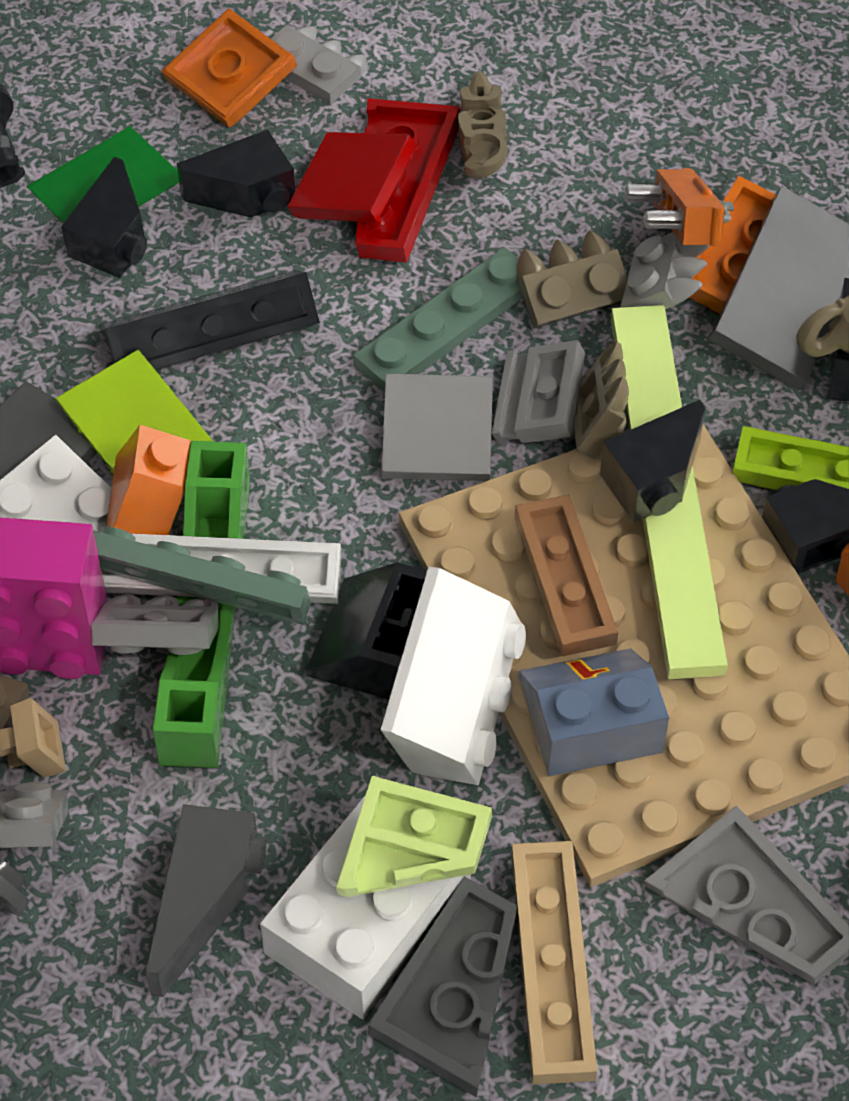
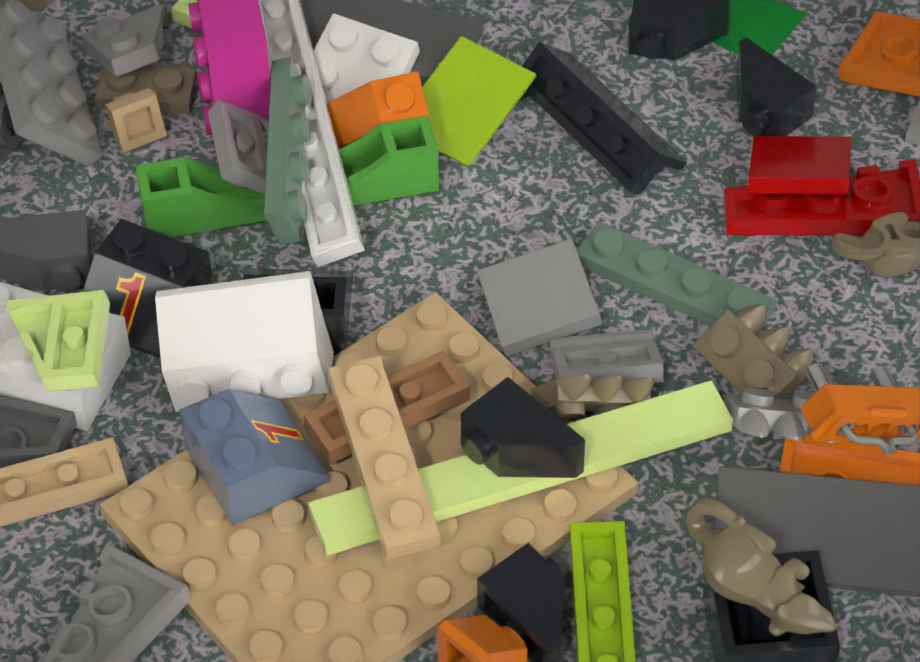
camera: 75 degrees right, 5 degrees down
(300, 774) = (137, 264): none -> black slope
(642, 583) = (383, 458): none -> tan plate

